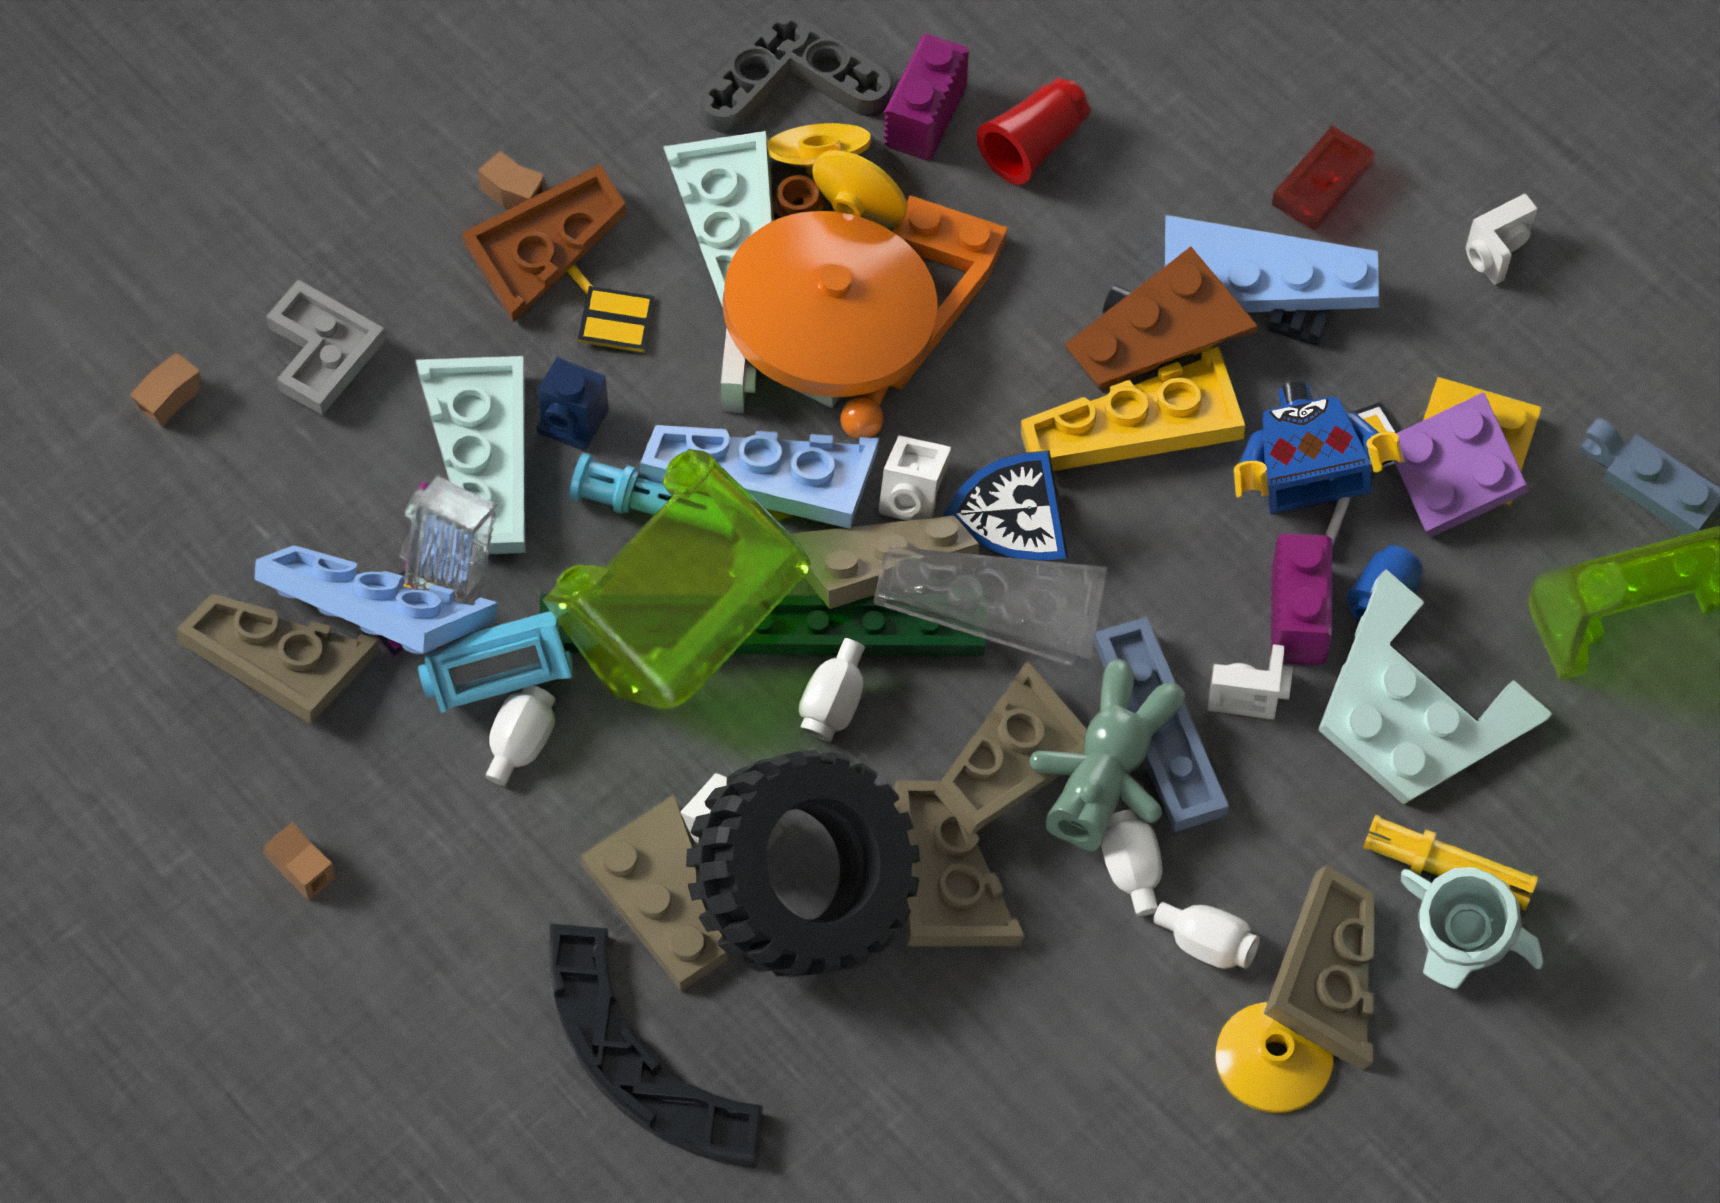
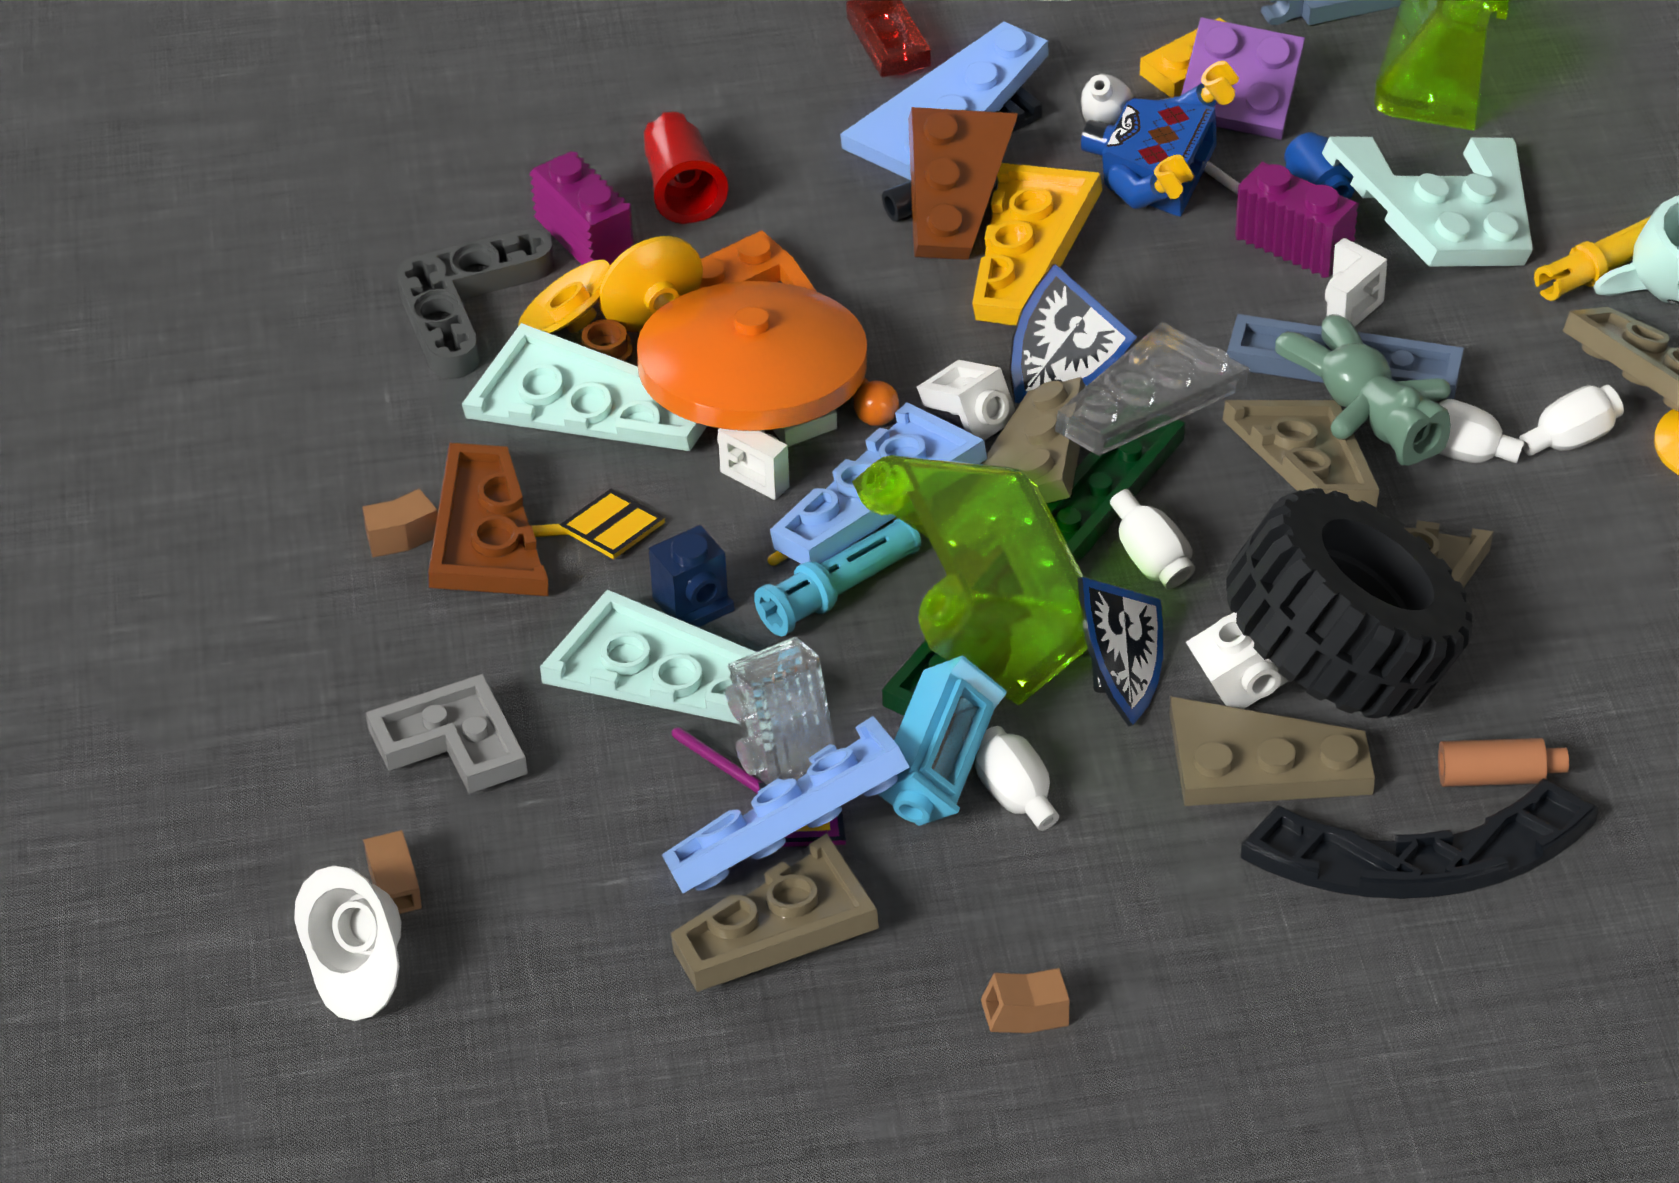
camera: 55 degrees left, 15 degrees down
(85, 404) = (349, 940): none -> white piece
(692, 731) = (1124, 644): none -> shield
(758, 1064) = (1498, 762): none -> nougat cylinder
(1338, 378) = (1104, 98): none -> white plant

